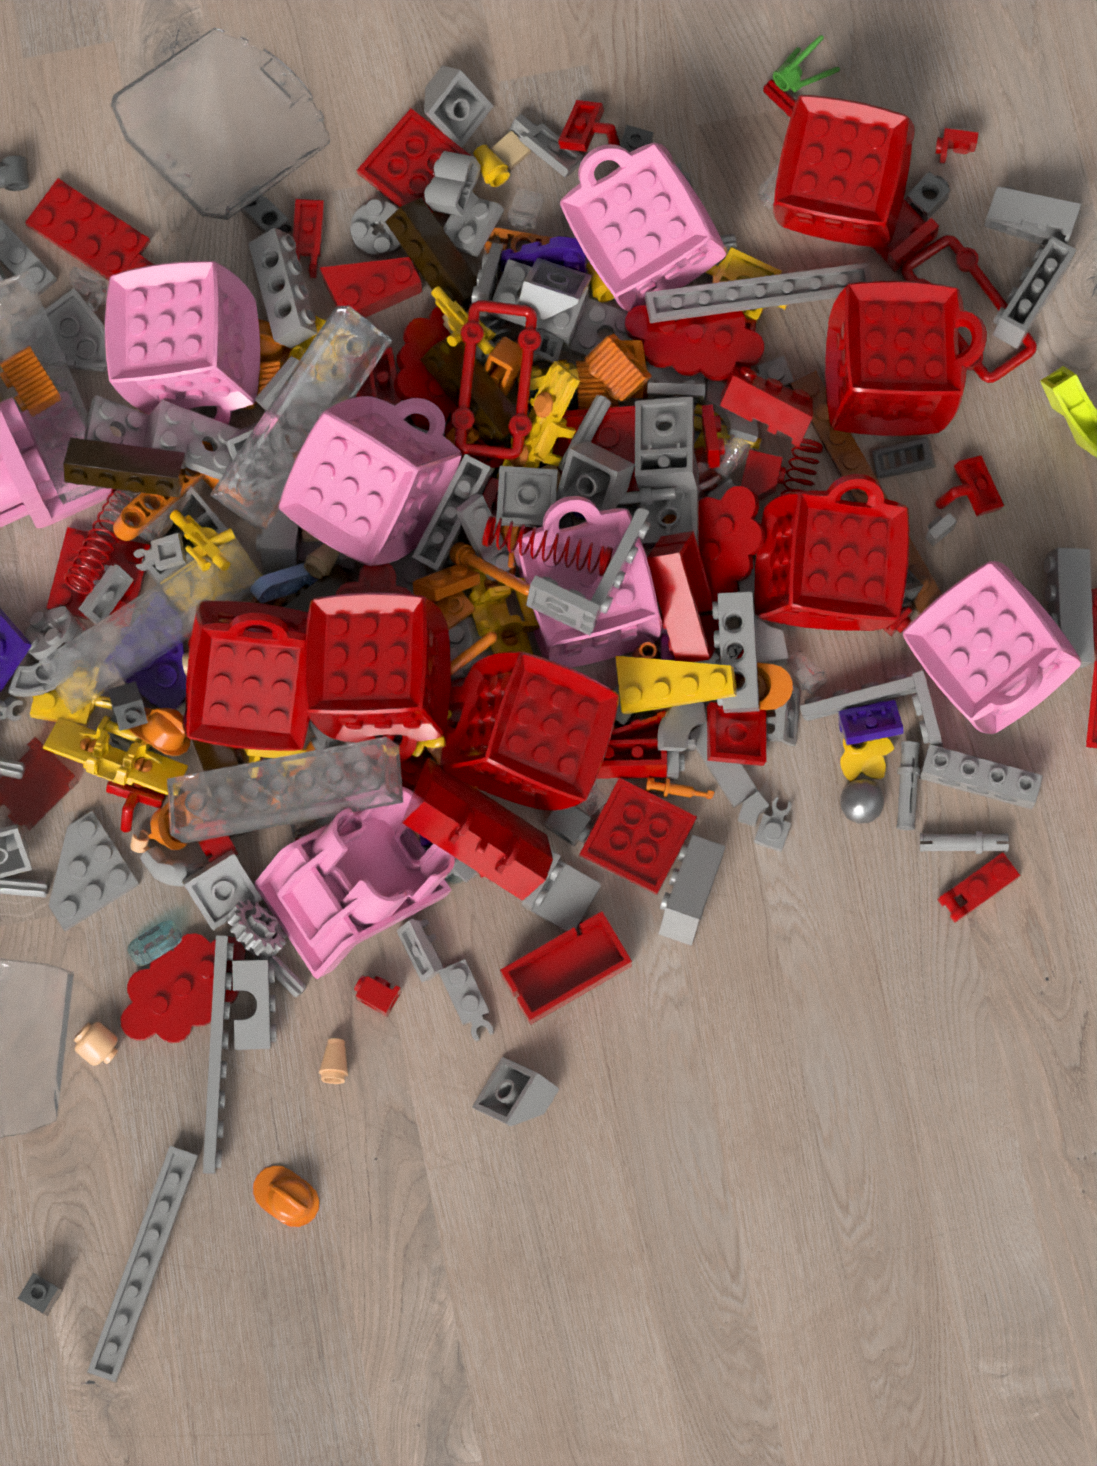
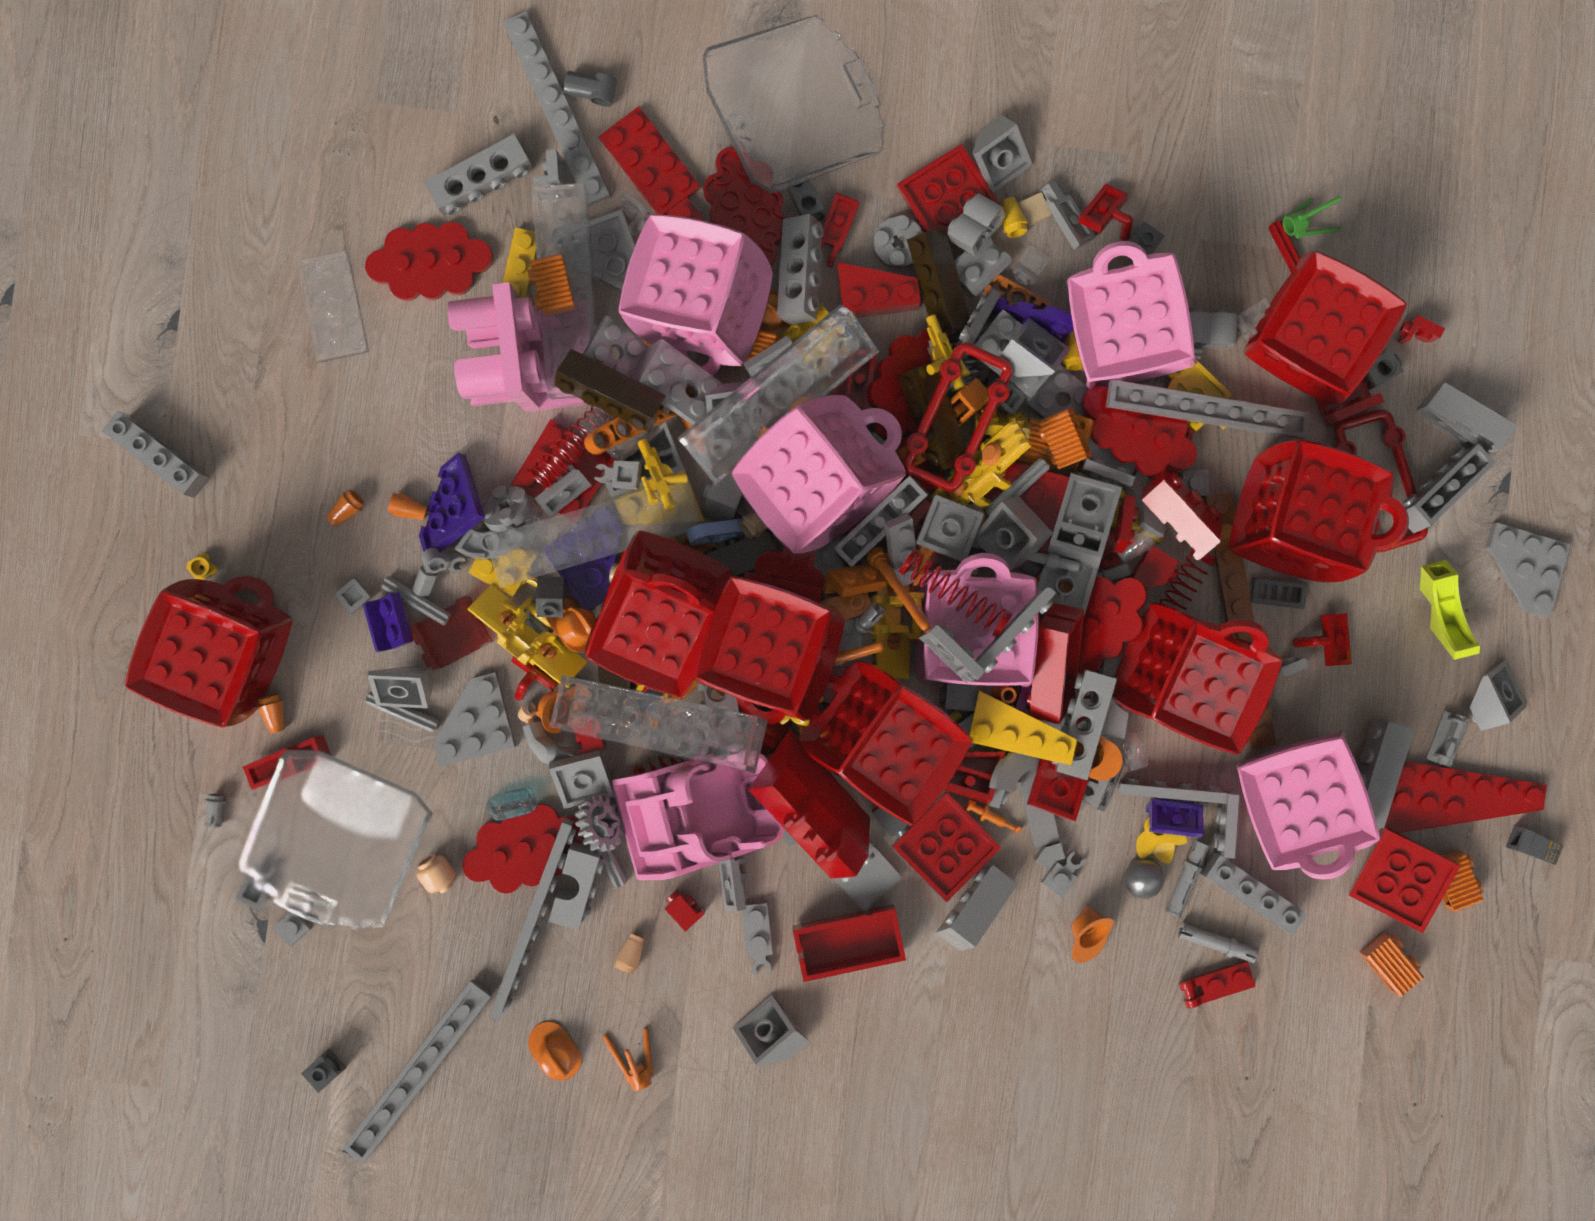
camera: 10 degrees right, 10 degrees up
(191, 237) = (743, 204): none -> red plate
(385, 1188) = (637, 1074): none -> orange plant
(473, 616) = (864, 623): none -> light grey pin
(601, 669) = (958, 696): none -> dark grey brick
(736, 211) = (1213, 329): none -> light grey brick
(824, 877) = (1090, 934): none -> orange piece

